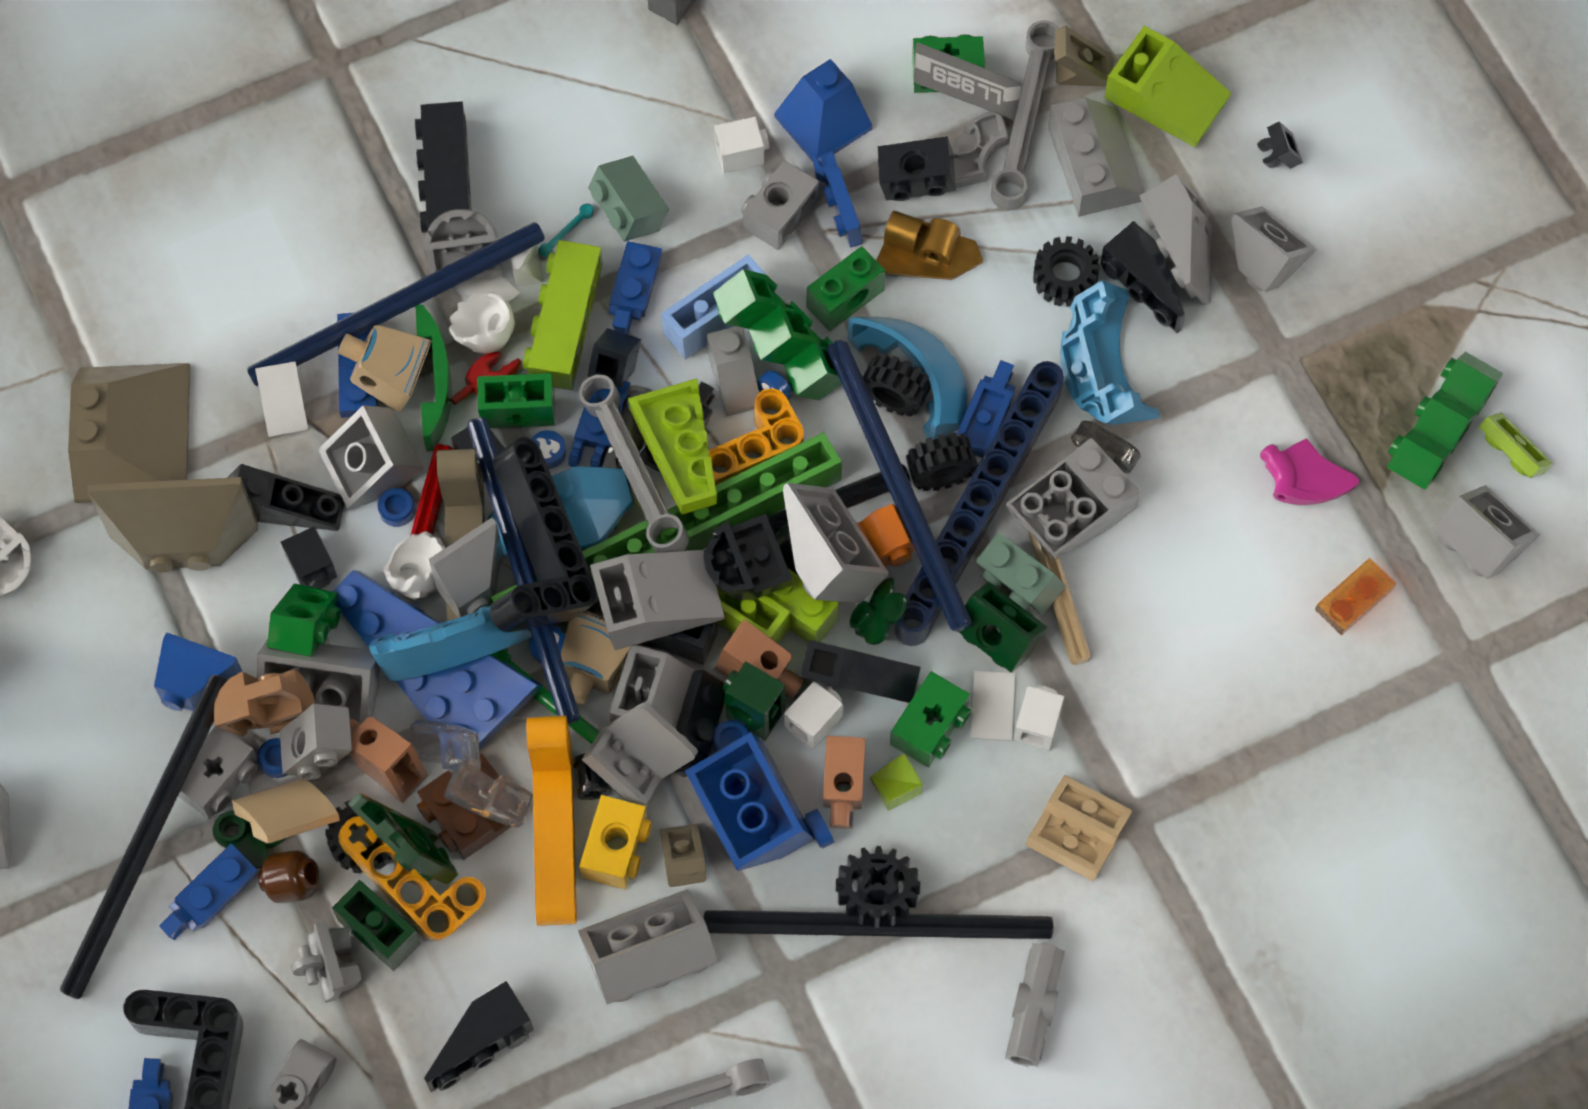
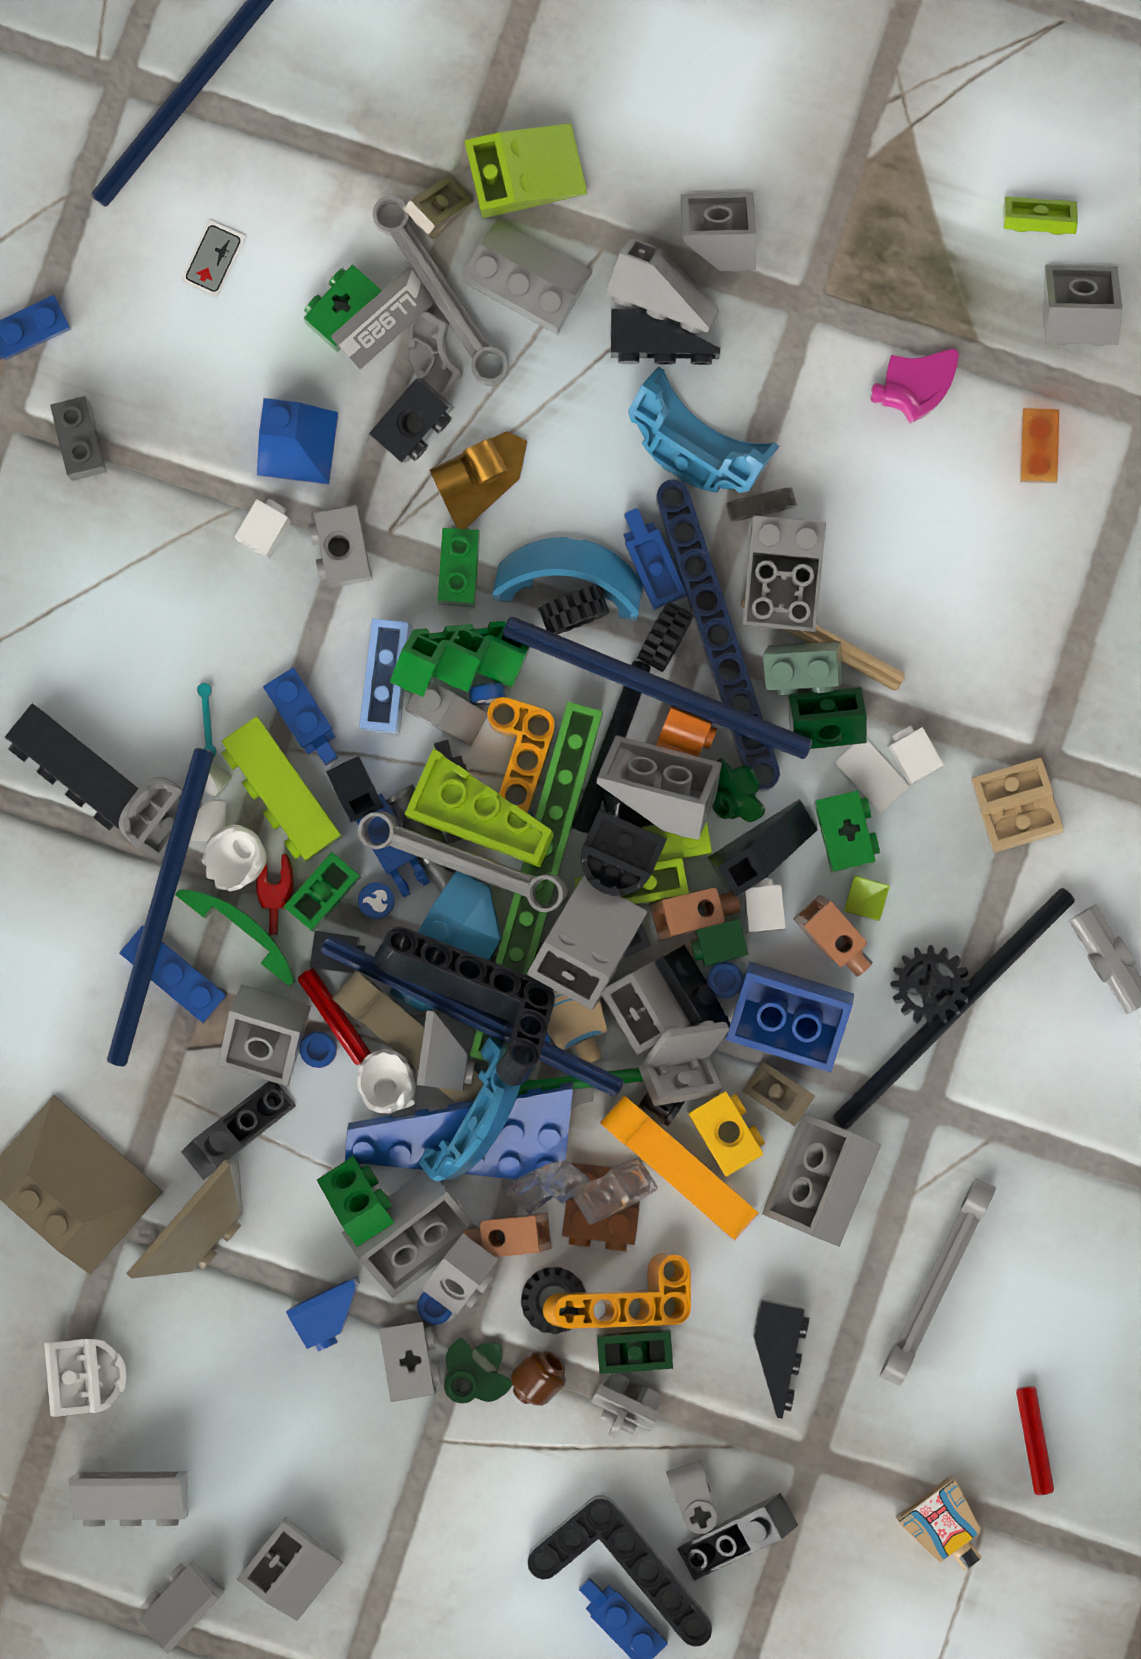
camera: 40 degrees left, 20 degrees up
(142, 841) = (418, 1451): black axle -> none
(209, 892) = (496, 1440): blue hinge -> none
(261, 702) = (400, 1285): medium nougat brick -> none
(281, 399) = (154, 1056): white sticker -> none
(285, 810) = (493, 1341): tan slope -> none
(309, 559) = (306, 1151): black brick -> none
(386, 363) = (203, 958): tan torso -> none
(407, 838) = (608, 1283): dark green wing -> none
(628, 198) = (231, 655): sand green brick -> none
(819, 828) = (850, 984): blue tile -> none
(837, 195) = (374, 498): blue hinge -> none
(1069, 253) = (597, 414): black tyre -> none
(1283, 146) = (651, 130): black tile -> none
(1443, 419) = (974, 247): green brick -> none

